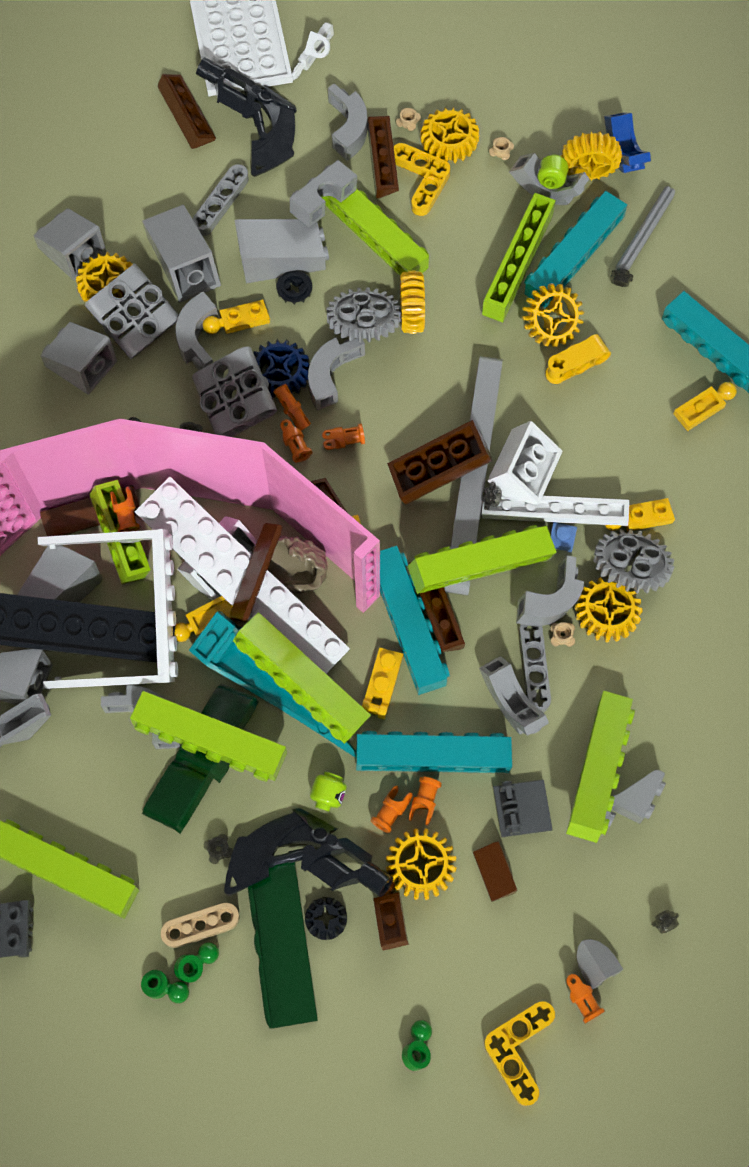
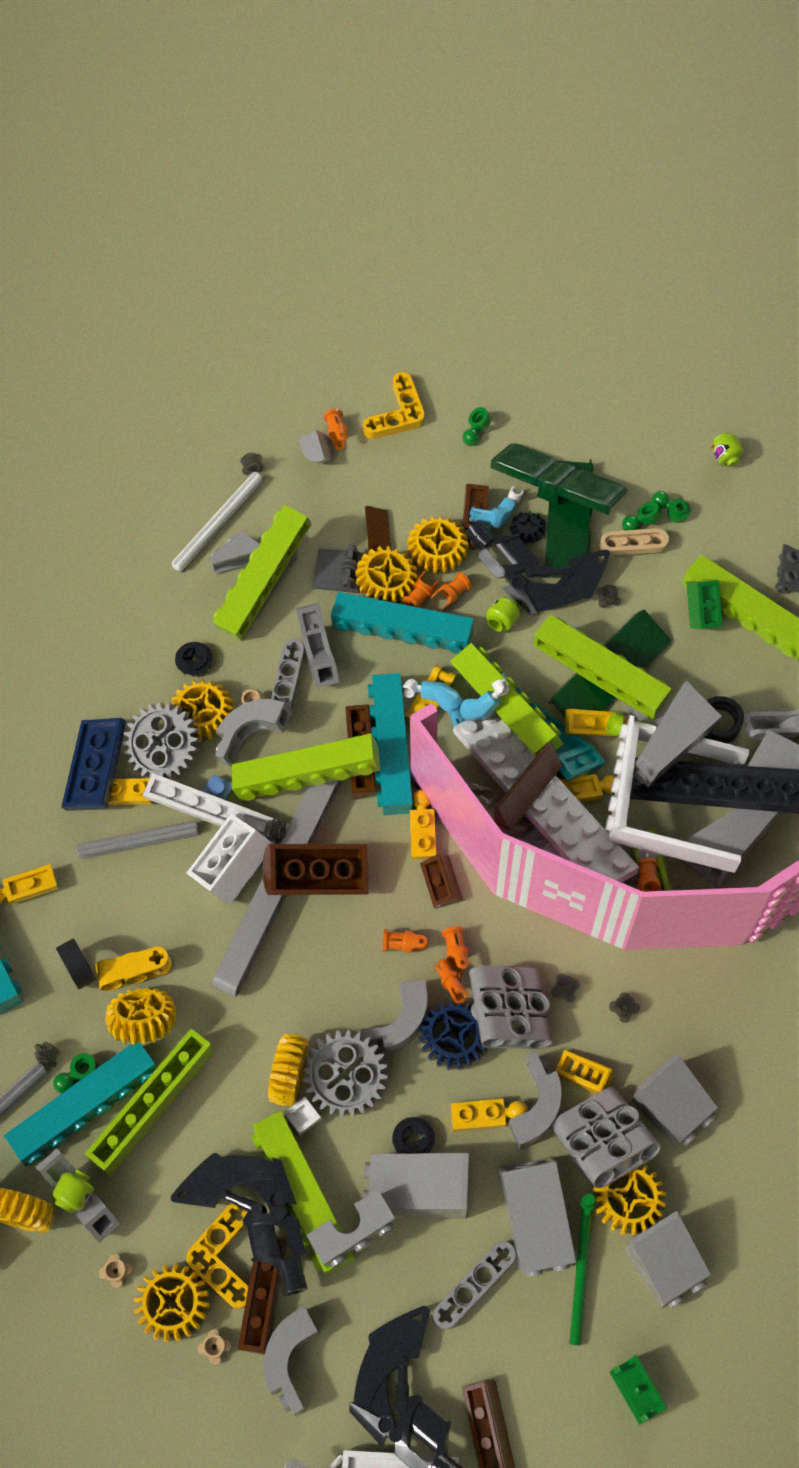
camera: 165 degrees left, 5 degrees down
(69, 709) = (735, 710): none -> black tyre
(81, 161) = (637, 1390): none -> green hinge
(106, 1084) = (727, 449): none -> lime head
(108, 848) = (704, 604): none -> green hinge
(118, 656) = (679, 730): none -> light grey slope
(138, 248) = (586, 1206): none -> green bar
(156, 359) = (607, 1078): none -> yellow slope
(185, 685) = (614, 723): none -> lime tile
(207, 688) = (587, 722): none -> yellow plate
(303, 985) = (558, 478): none -> dark green piece
(327, 659) = (483, 707): none -> medium azure arm
(359, 919) = (499, 515): none -> medium azure arm
(366, 674) = (439, 692): none -> medium azure arm
(389, 281) = (302, 1116): none -> white plate
(393, 197) = (222, 1174): none -> black piece
(455, 808) = (398, 571): none -> yellow gear
(590, 271) = (66, 1080): none -> green plate
(621, 472) = (137, 839): none -> light grey axle
(626, 343) = (76, 963): none -> black tyre
(643, 656) = (185, 654): none -> black gear
(676, 839) = (217, 522): none -> white axle
(690, 530) = (94, 764): none -> dark blue tile

